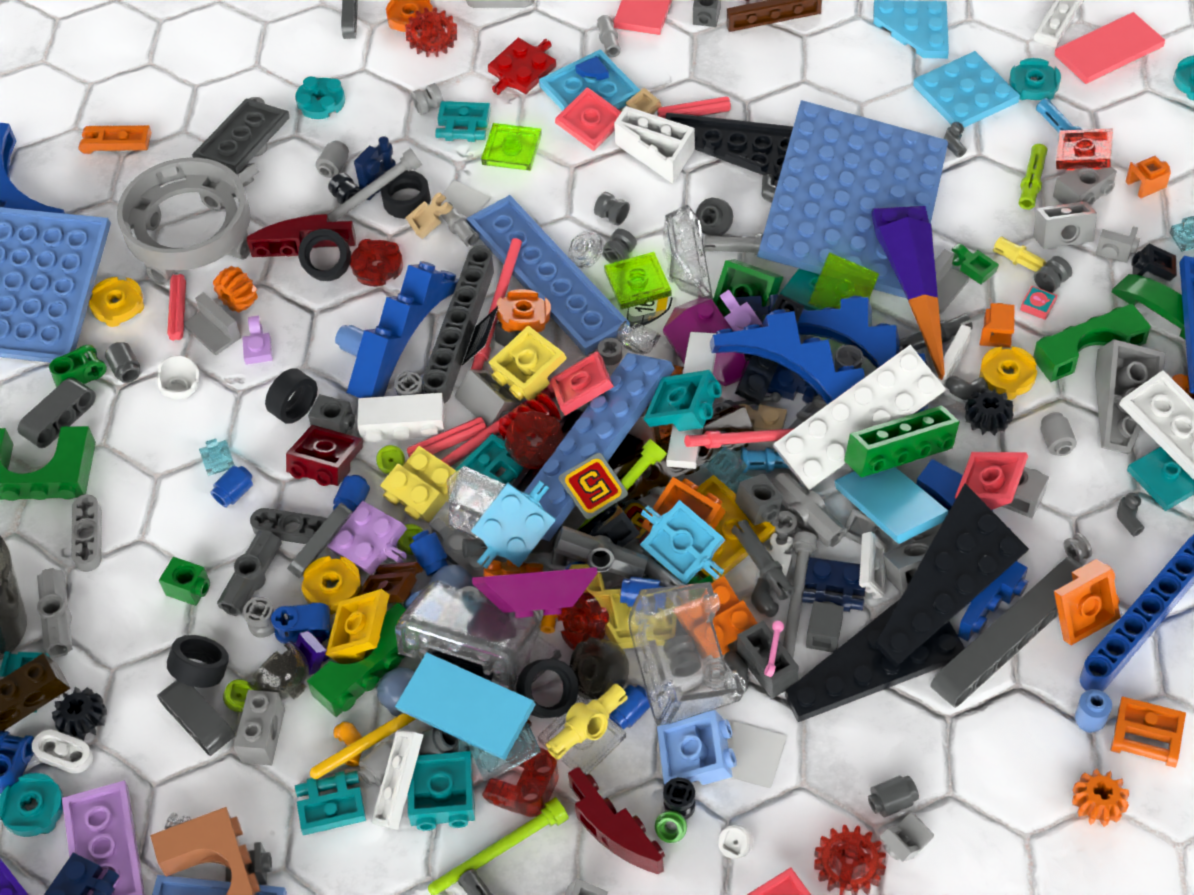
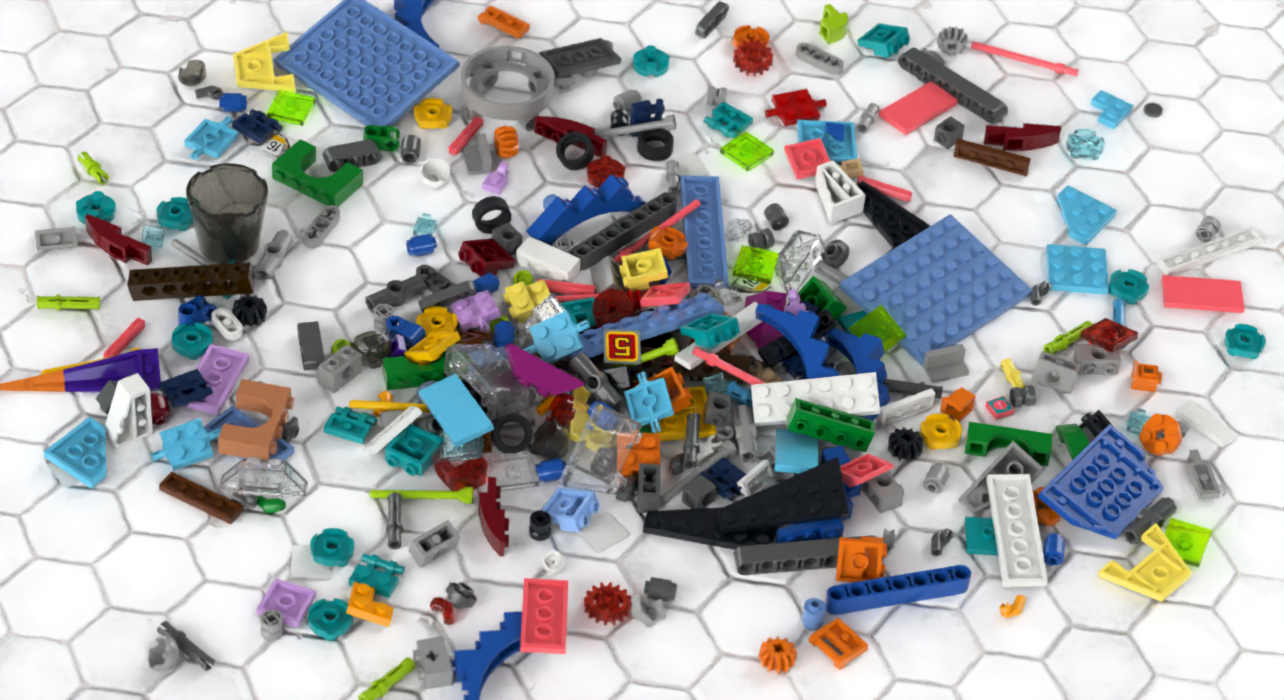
camera: 25 degrees right, 10 degrees down
(177, 574) = (356, 278): green brick -> none
(195, 673) = (331, 318): black tyre -> none
(425, 216) = (656, 162): tan plate -> none
(586, 721) = (507, 457): light yellow pin -> none
(669, 835) = (519, 535): bright green plate -> none
(778, 627) = (665, 471): bright pink hinge -> none
(909, 248) = (938, 330): dark purple plate -> none
(964, 389) = (899, 421): dark grey arm -> none
(975, 265) = (978, 367): green plate -> none
(1117, 246) = (1082, 403): light grey bracket -> none

